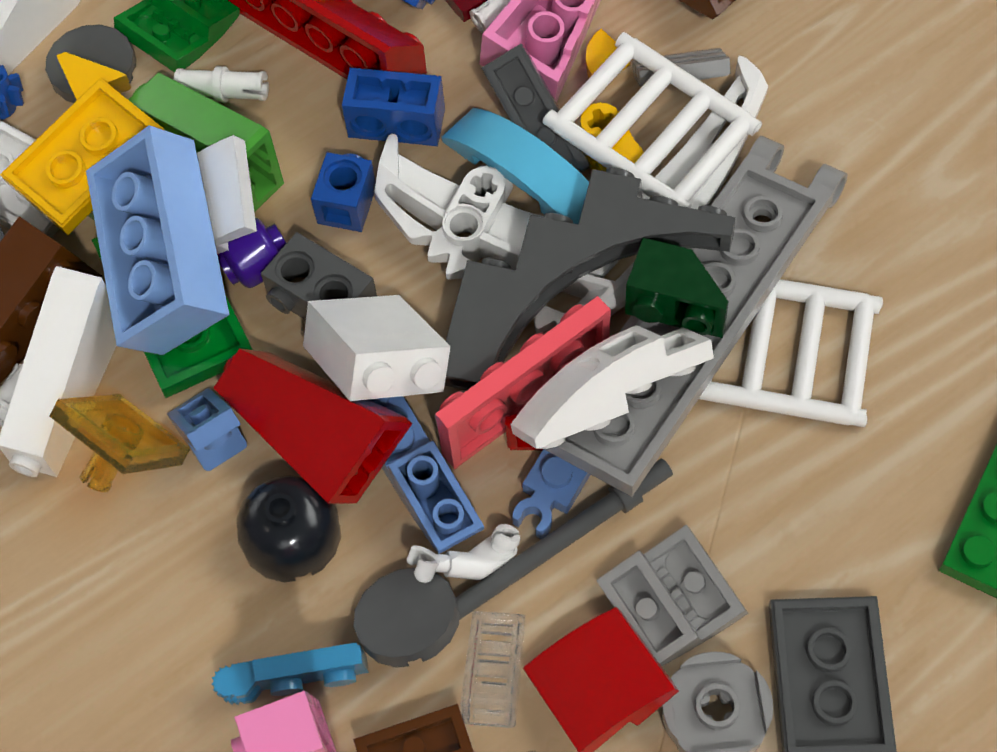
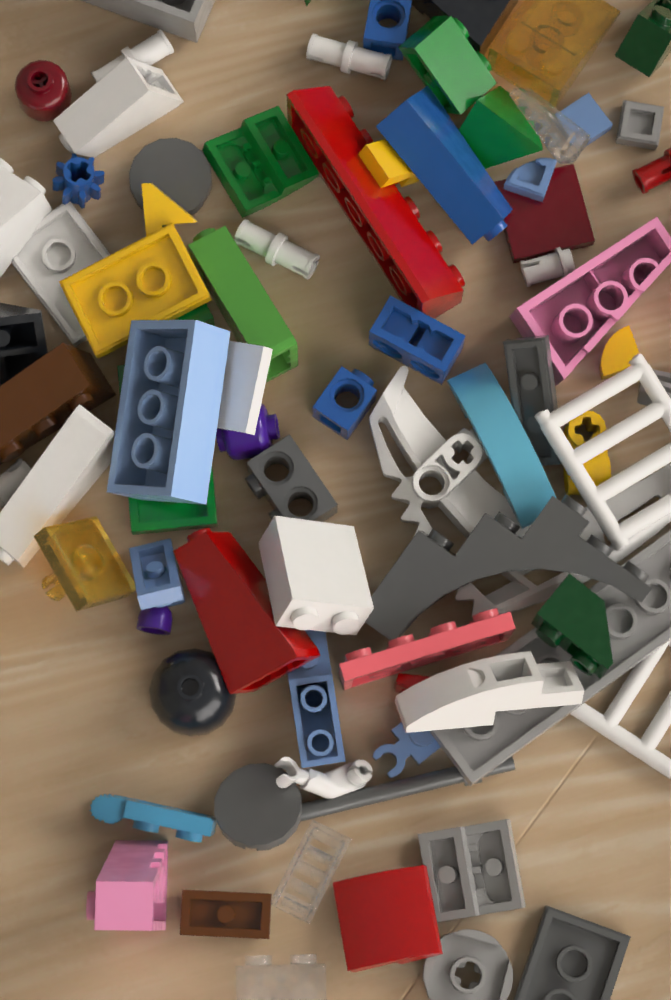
camera: 15 degrees right, 15 degrees up
(219, 470) = (155, 621): none -> dark purple hinge

